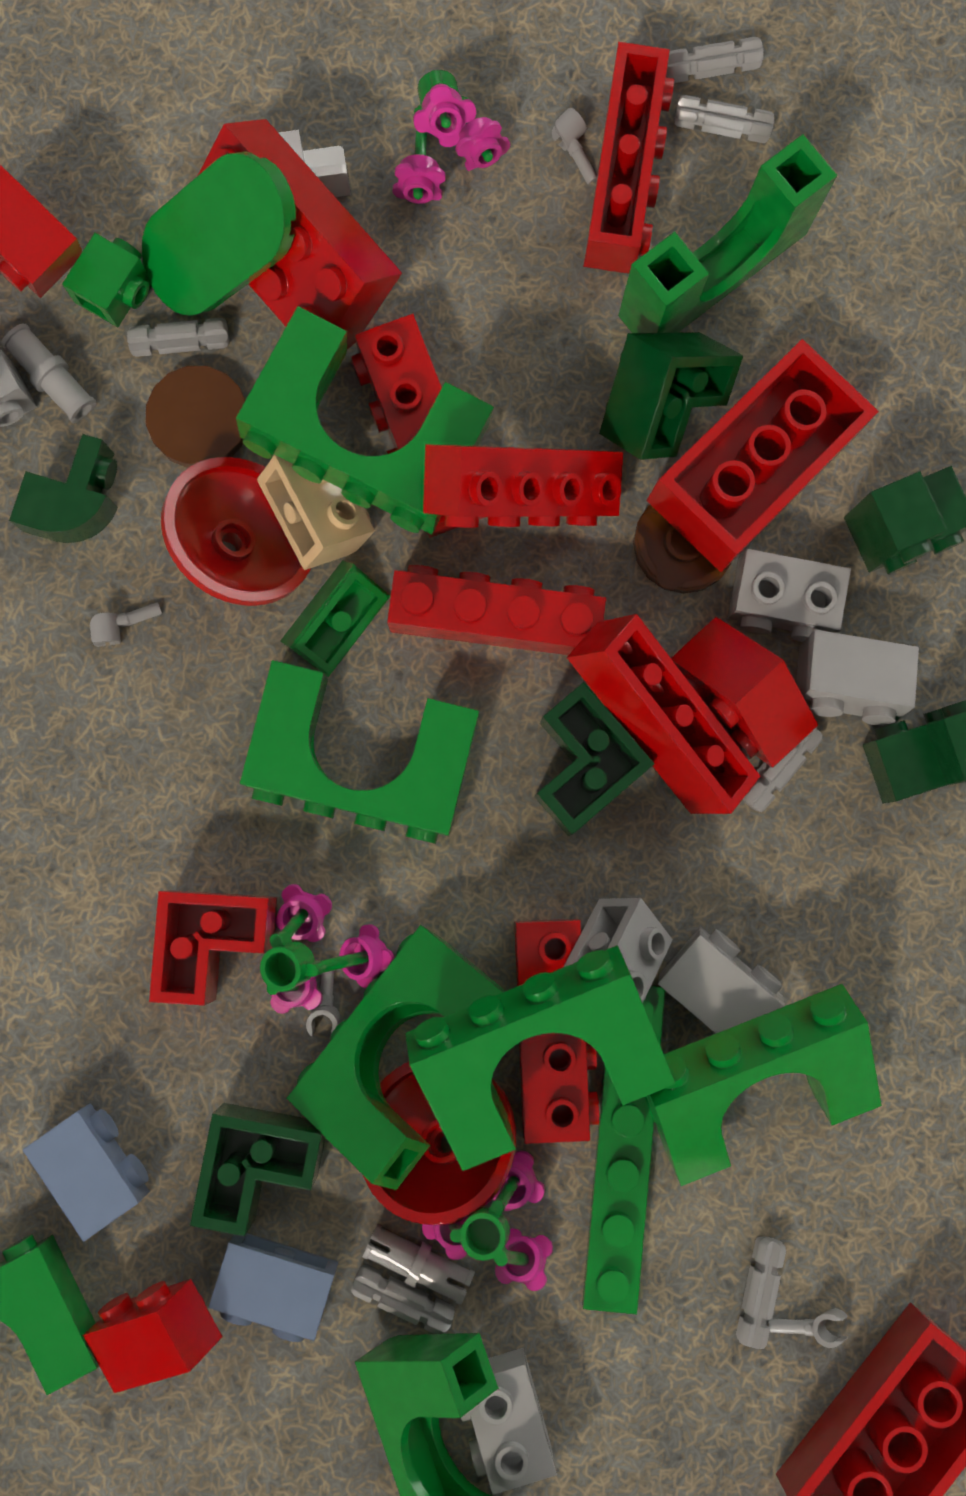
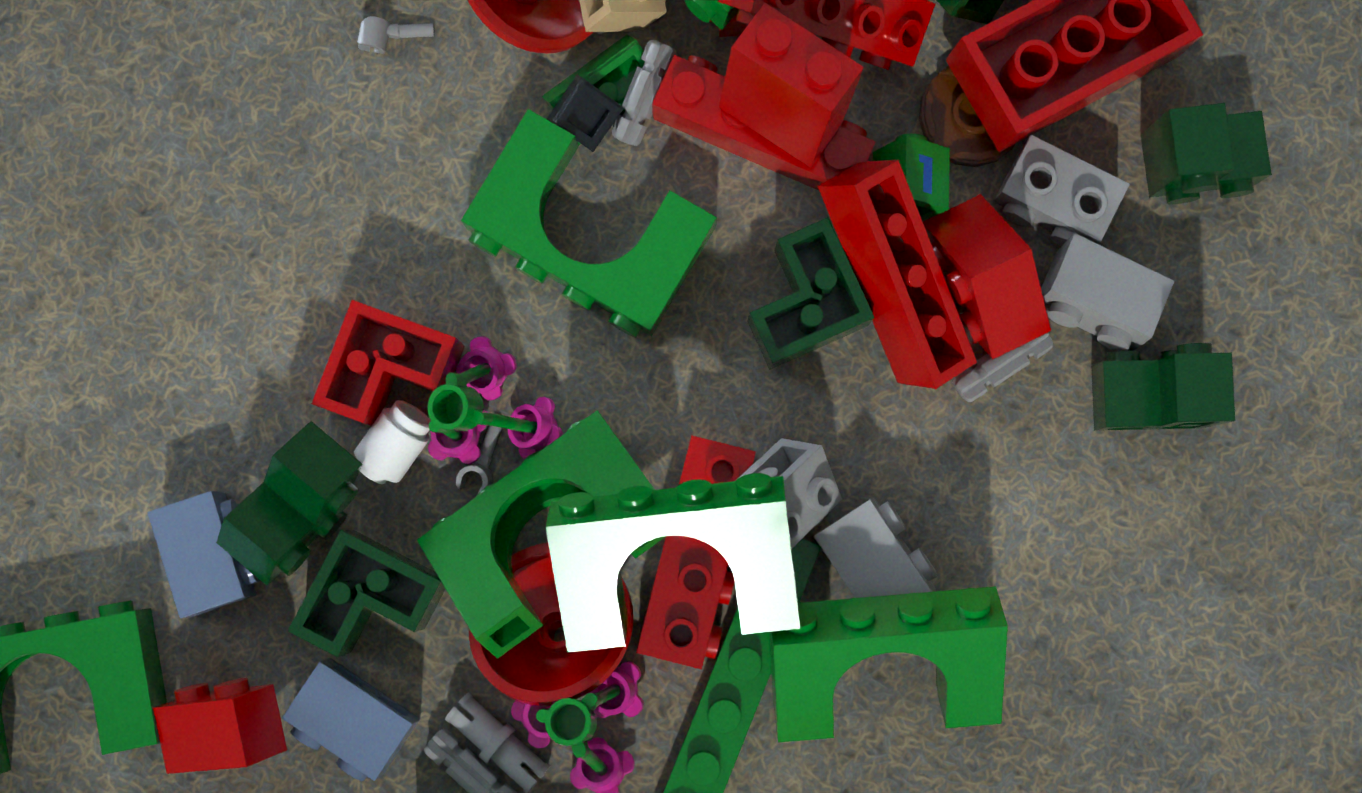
camera: 25 degrees right, 0 degrees up
(163, 1092) = (297, 502): none -> dark green brick
(236, 1011) = (393, 442): none -> white brick
(326, 646) = (585, 112): none -> black tile
(374, 612) = (642, 92): none -> light grey axle
(513, 572) = (788, 84): none -> red brick
(657, 607) = (925, 169): none -> green brick

